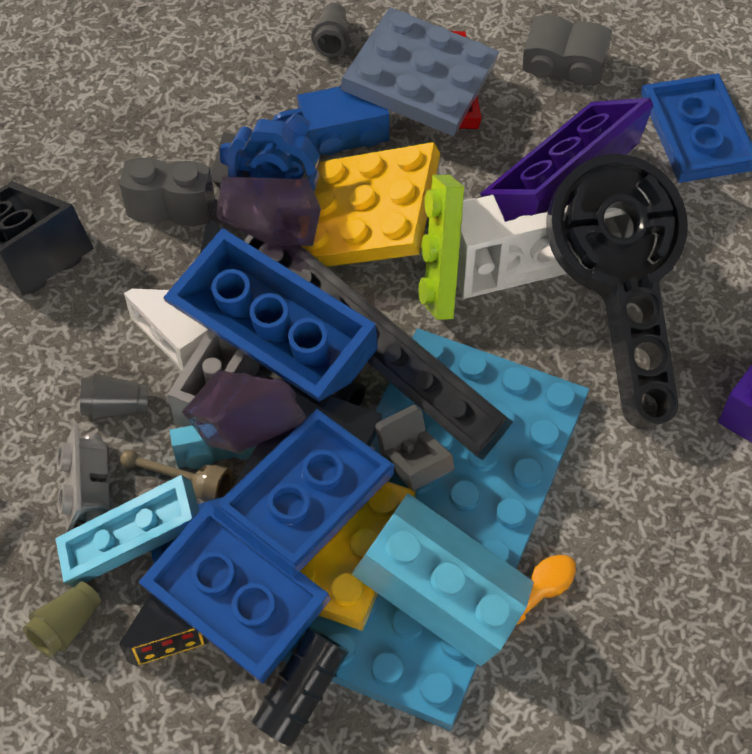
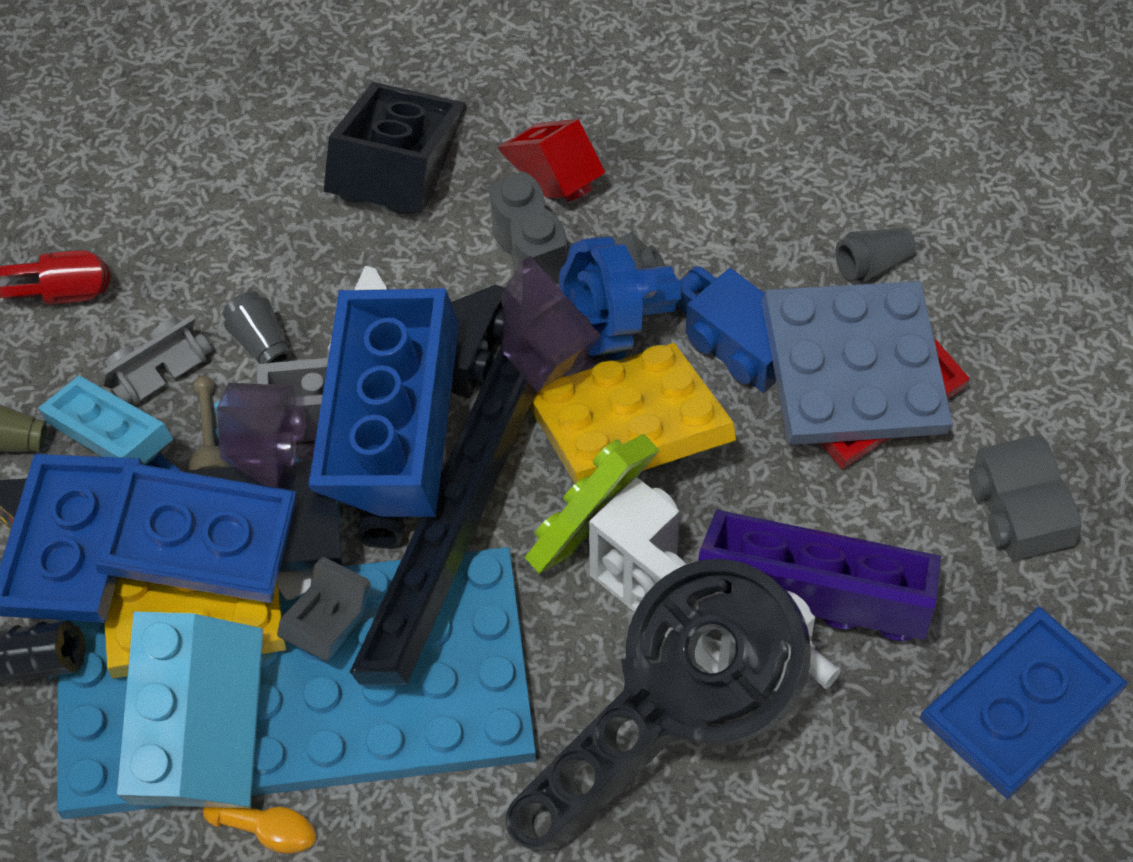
camera: 60 degrees right, 0 degrees up
(108, 144) = (556, 157): none -> red slope

